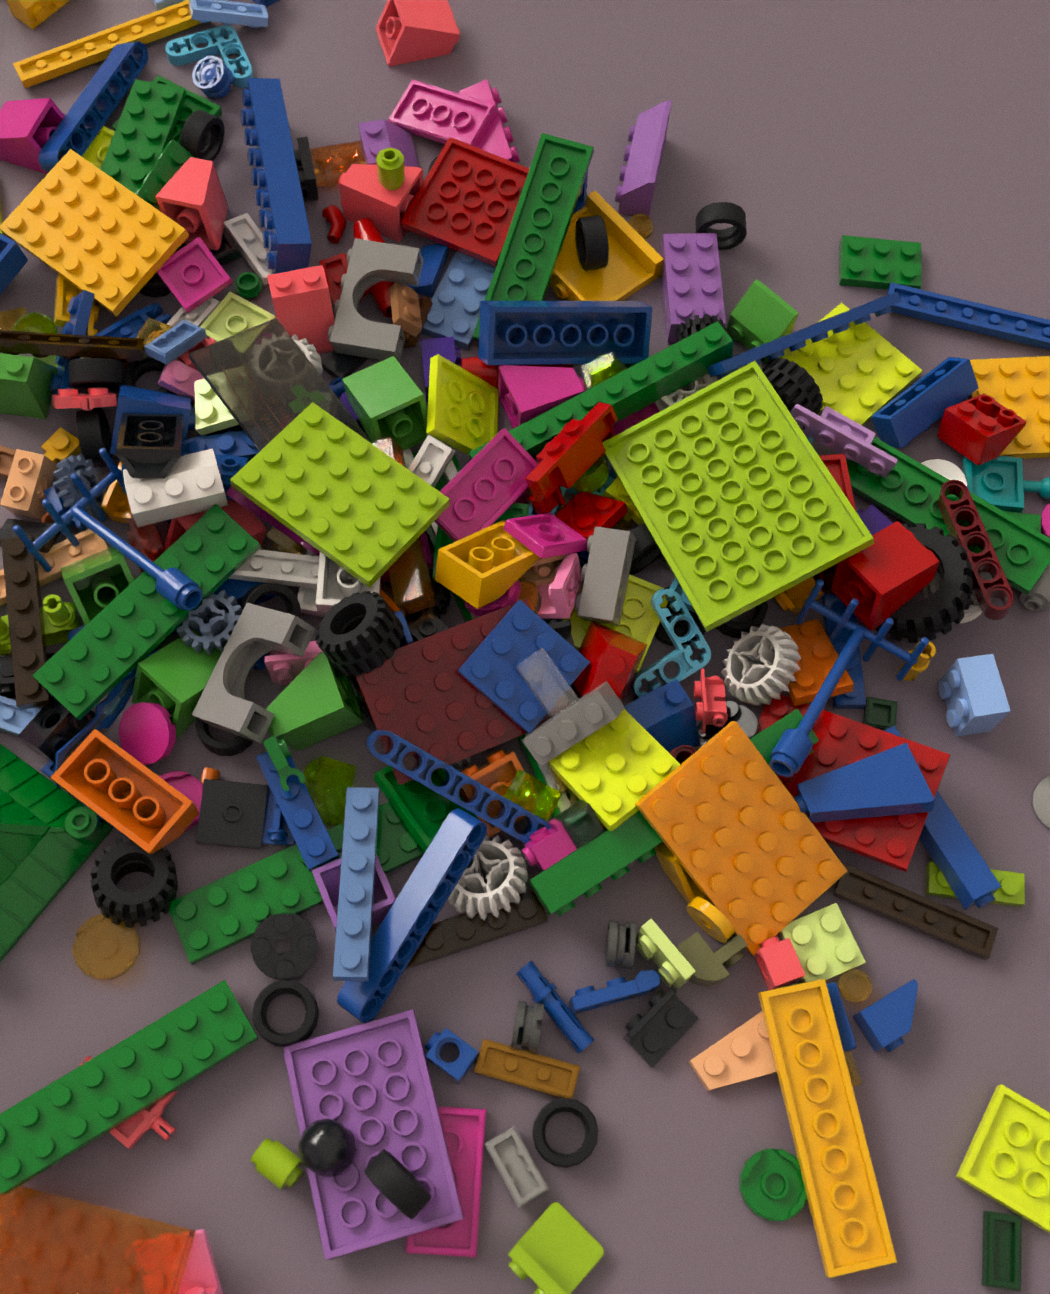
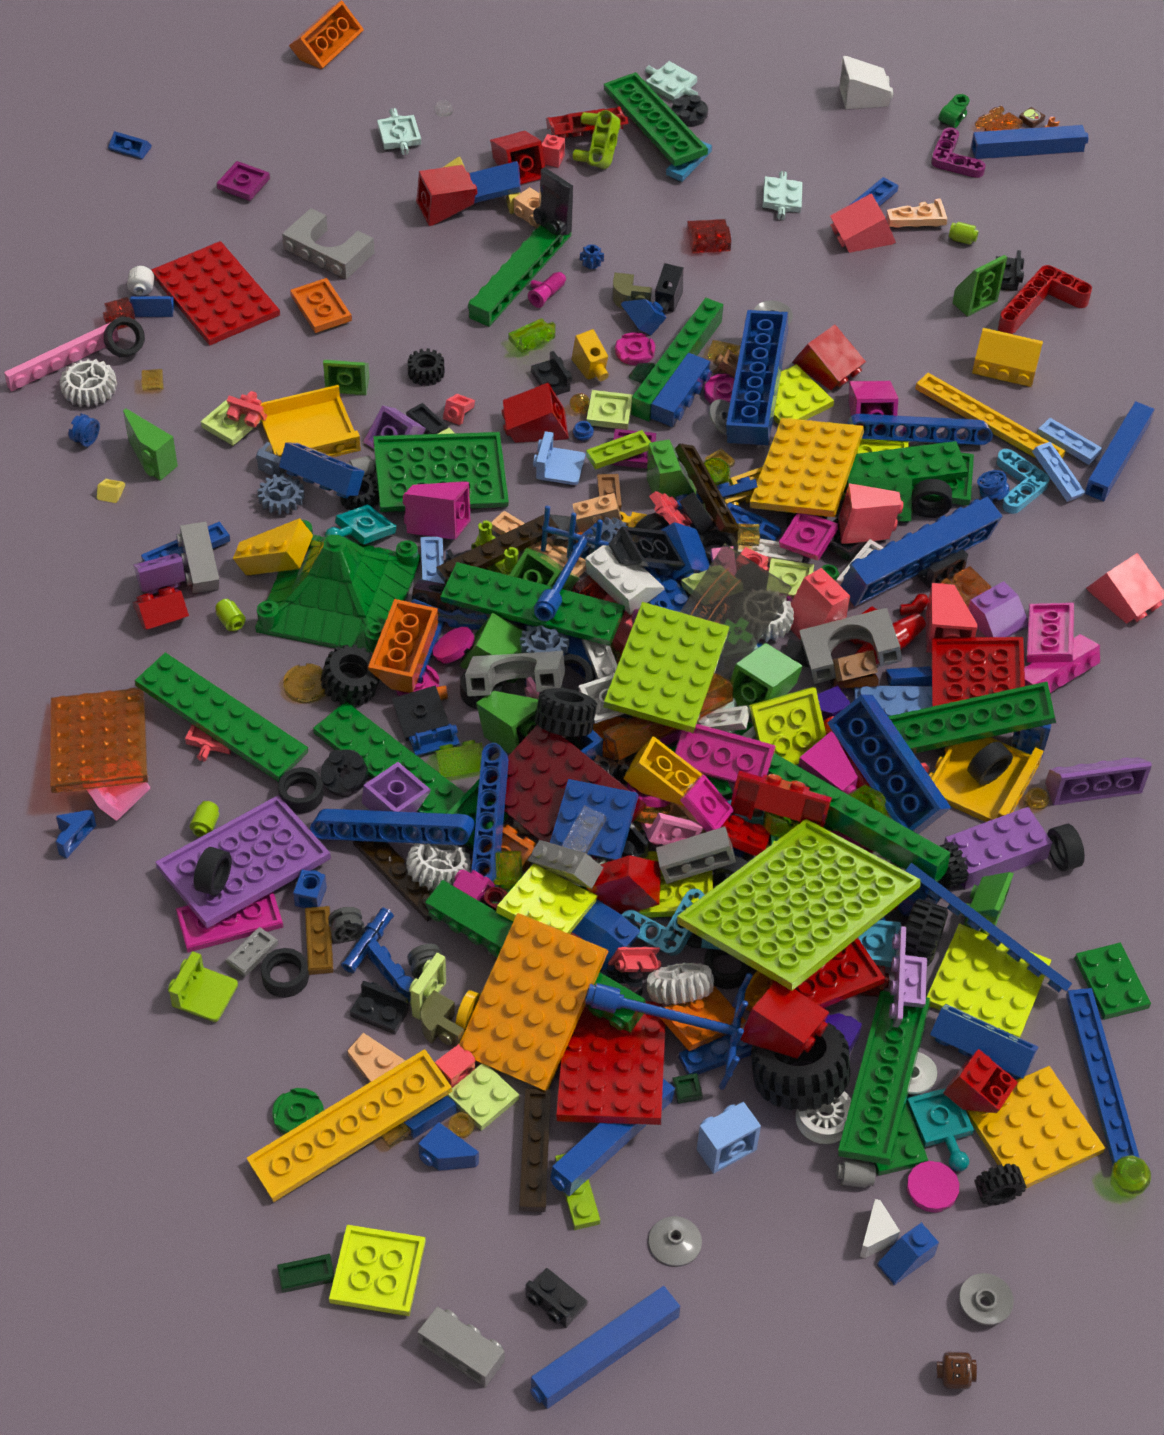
camera: 70 degrees right, 15 degrees down
(175, 342) = (746, 544): medium blue plate -> none
(278, 753) = (462, 706): green plate -> none
(300, 815) = (438, 739): blue plate -> none
(327, 1147) = (223, 834): black hair -> none
(356, 885) = (399, 786): medium blue plate -> none
(390, 168) = (956, 603): lime brick -> none
(580, 823) = (492, 893): clear green slope -> none
(867, 788) = (606, 1066): blue slope -> none
(922, 663) = (738, 1088): yellow pin -> none
(976, 535) = (851, 1096): dark red beam -> none

